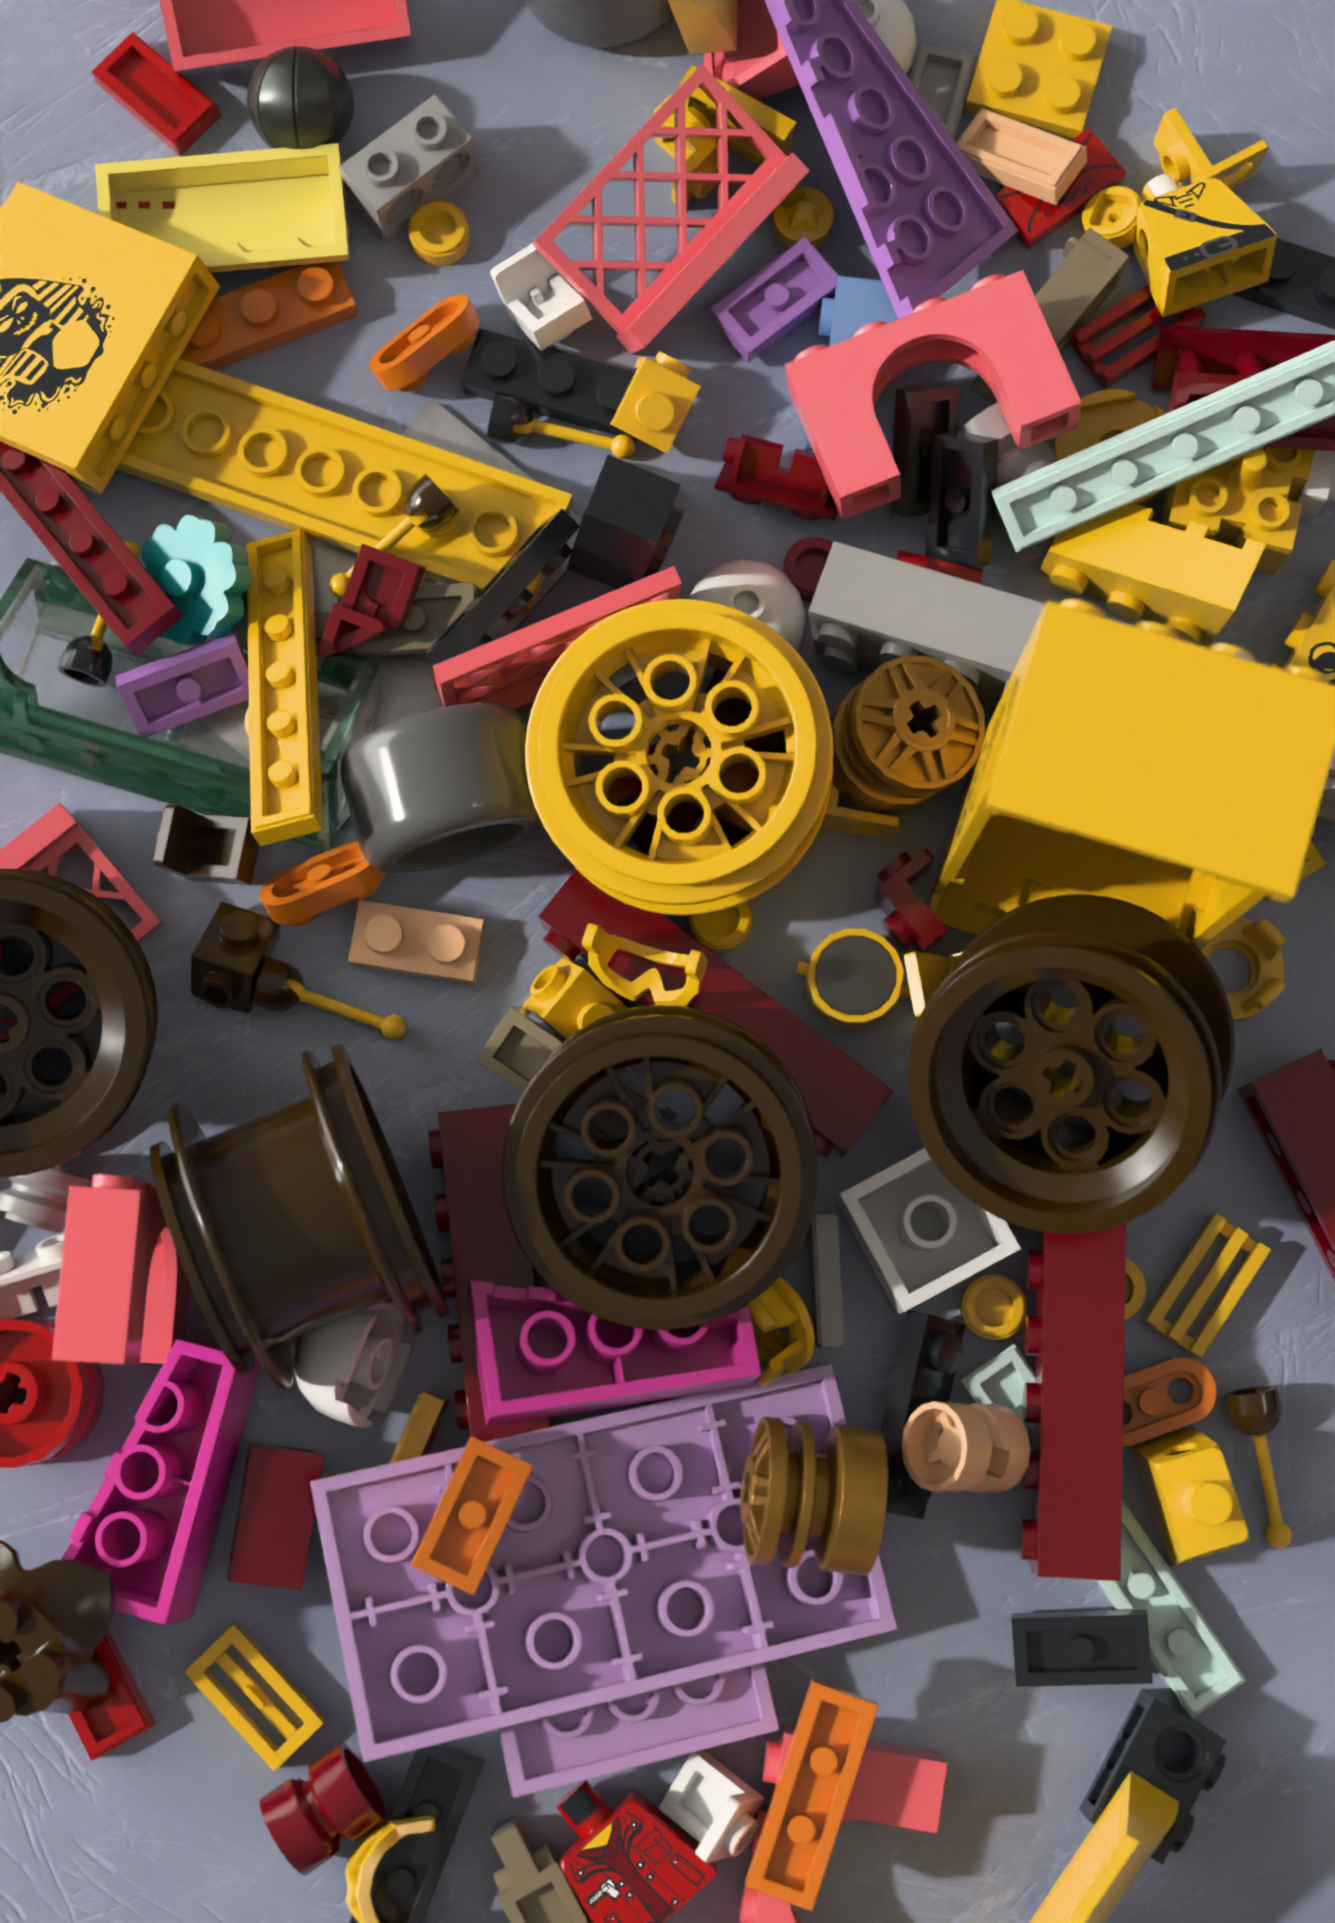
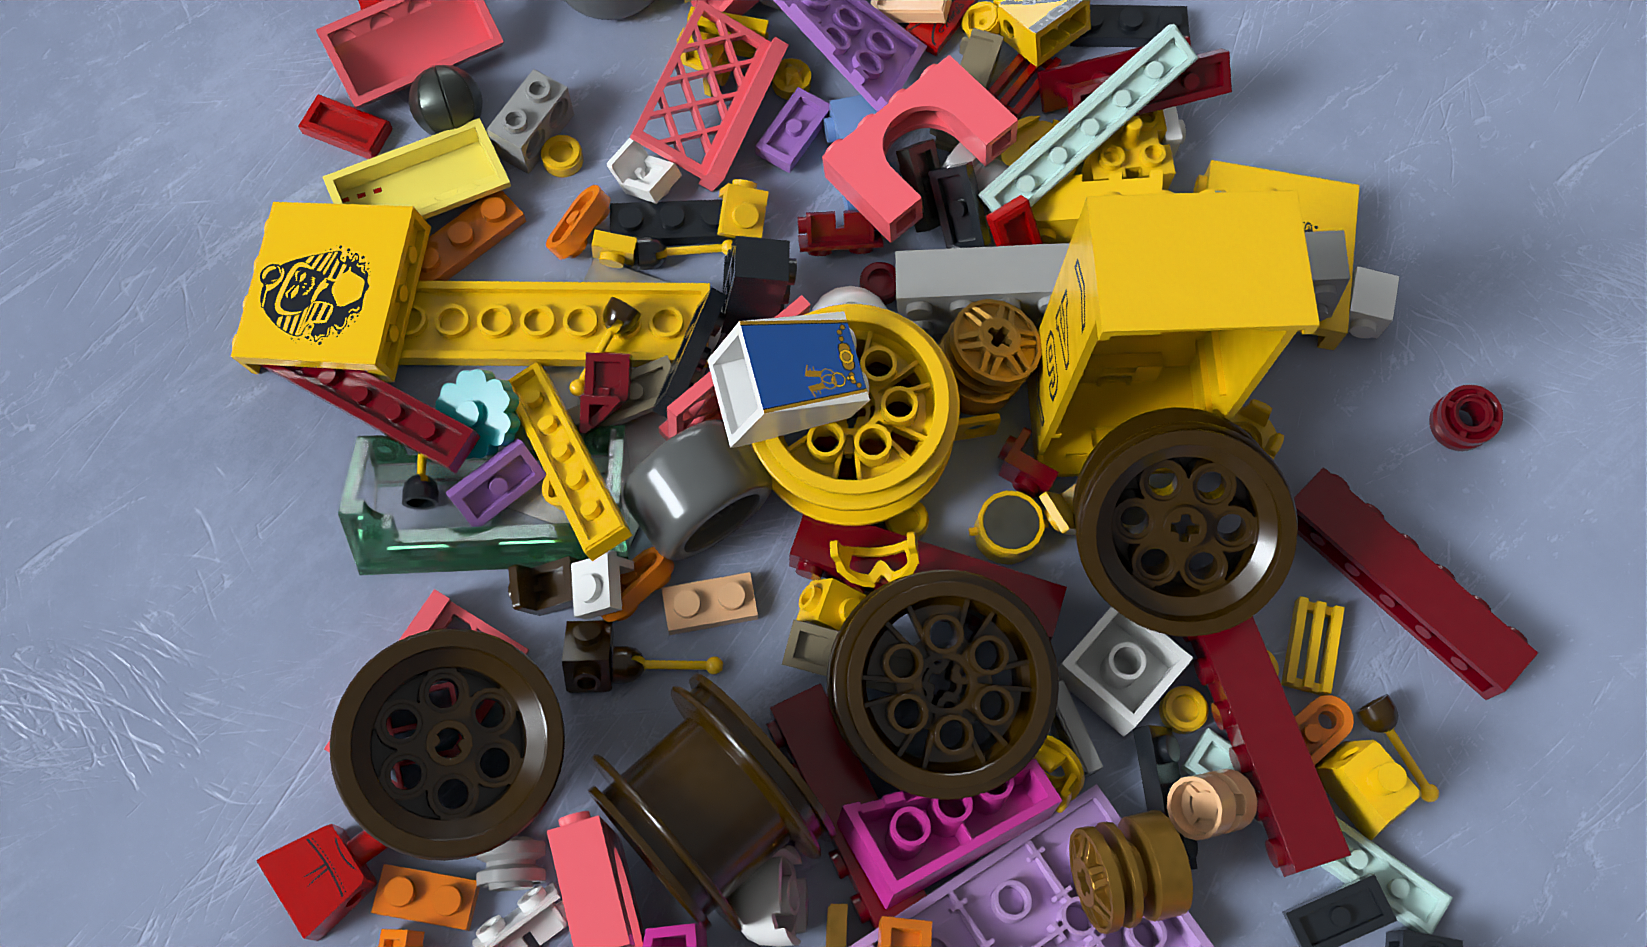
camera: 25 degrees left, 10 degrees down
(271, 873) = (598, 585): none -> white bracket
(458, 400) = (613, 249): none -> yellow plate
(596, 687) = (787, 376): none -> slope
(1026, 558) = (1014, 224): none -> red tile

